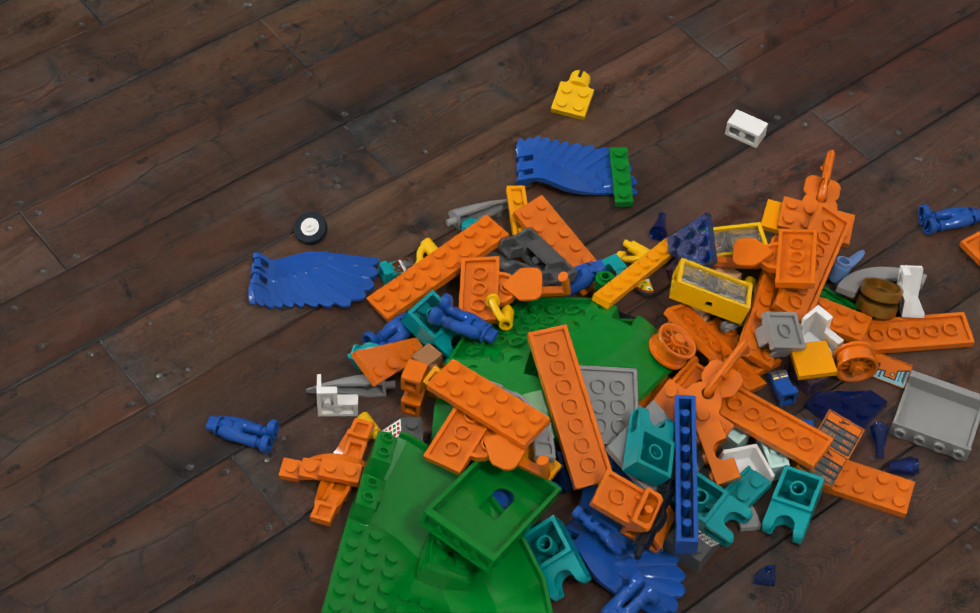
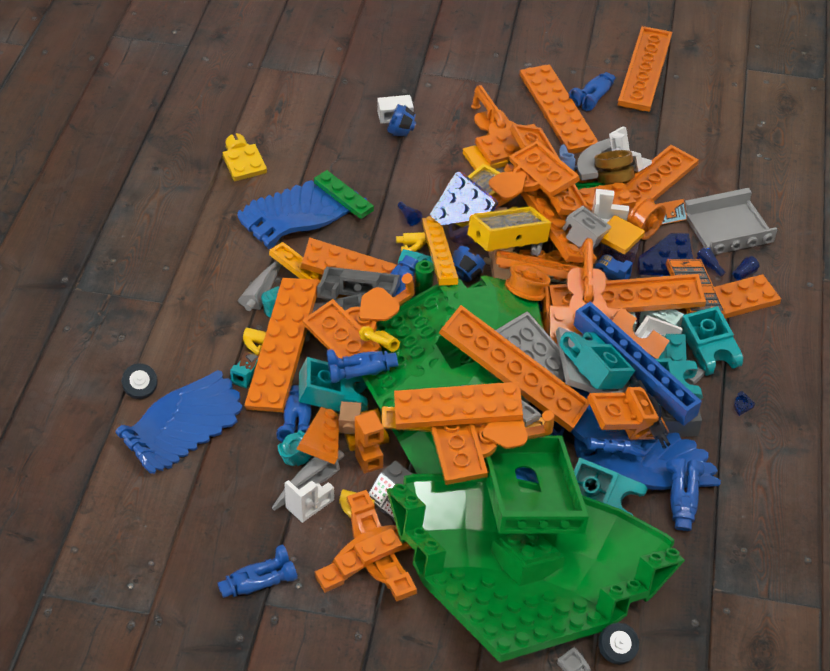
camera: 40 degrees left, 5 degrees down
(652, 299) = (467, 264): none -> blue cone
(736, 142) = (401, 121): none -> blue cone
(898, 215) = (558, 108): none -> orange plate

